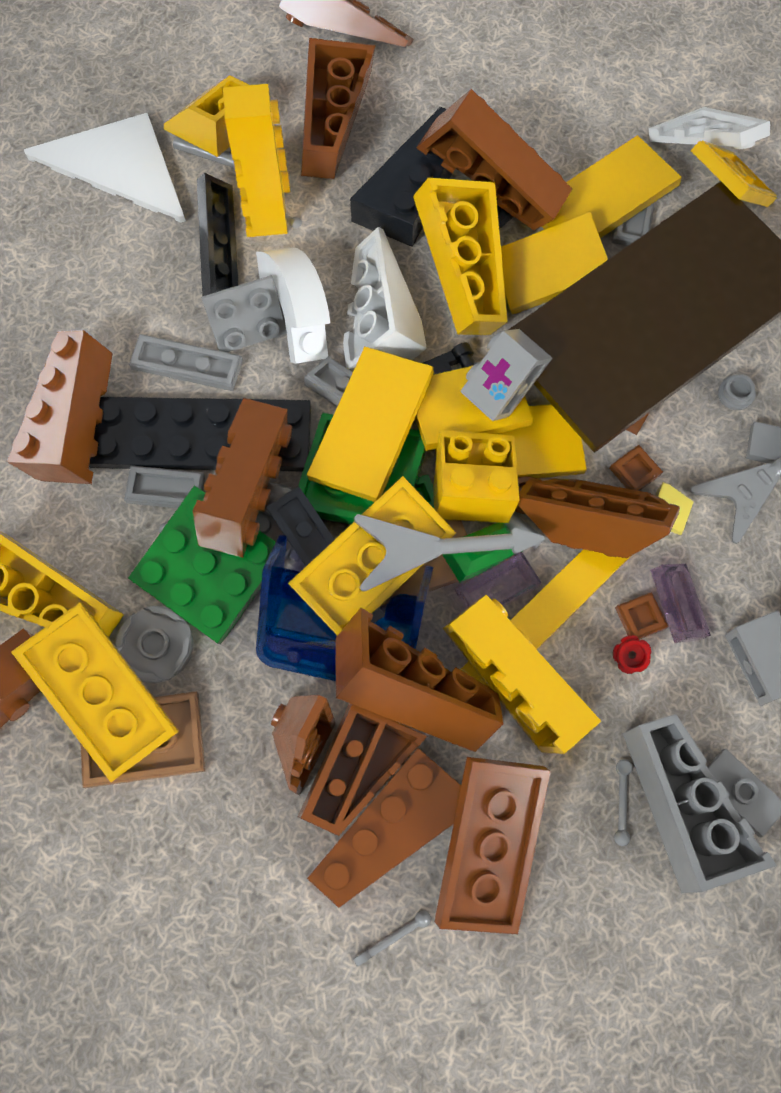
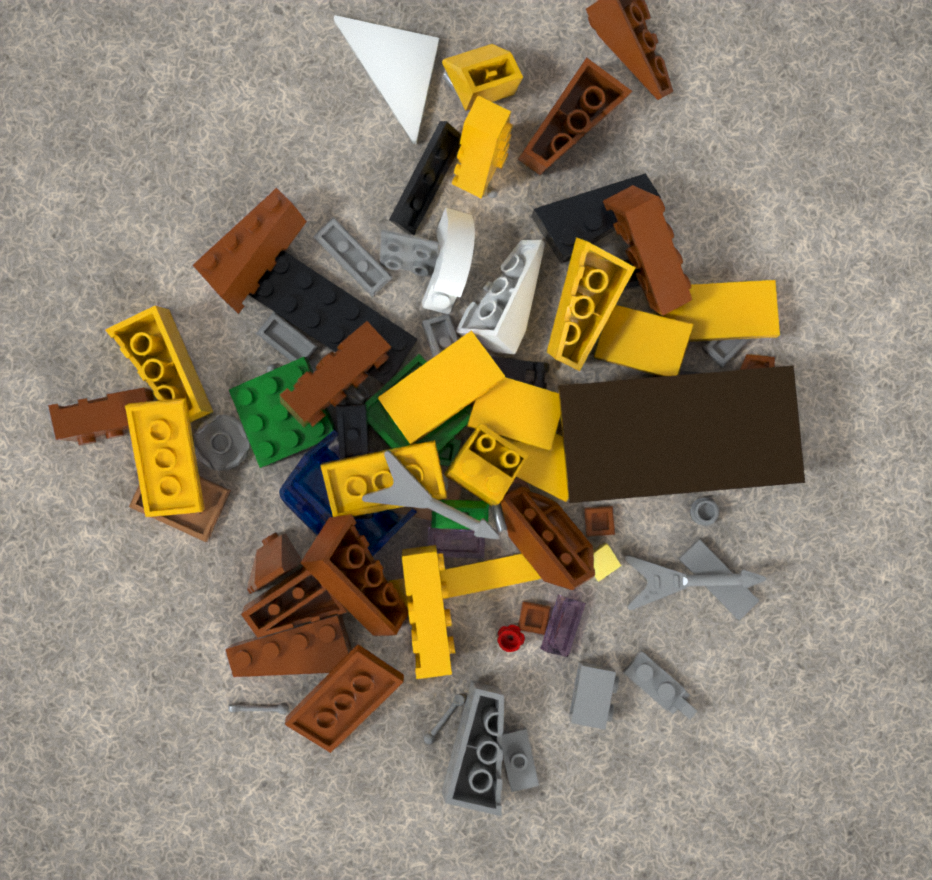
camera: 25 degrees right, 15 degrees up
(505, 373) = (544, 415): light grey brick -> none
(713, 127) = (828, 311): white wing -> none
(734, 174) = (815, 359): yellow tile -> none

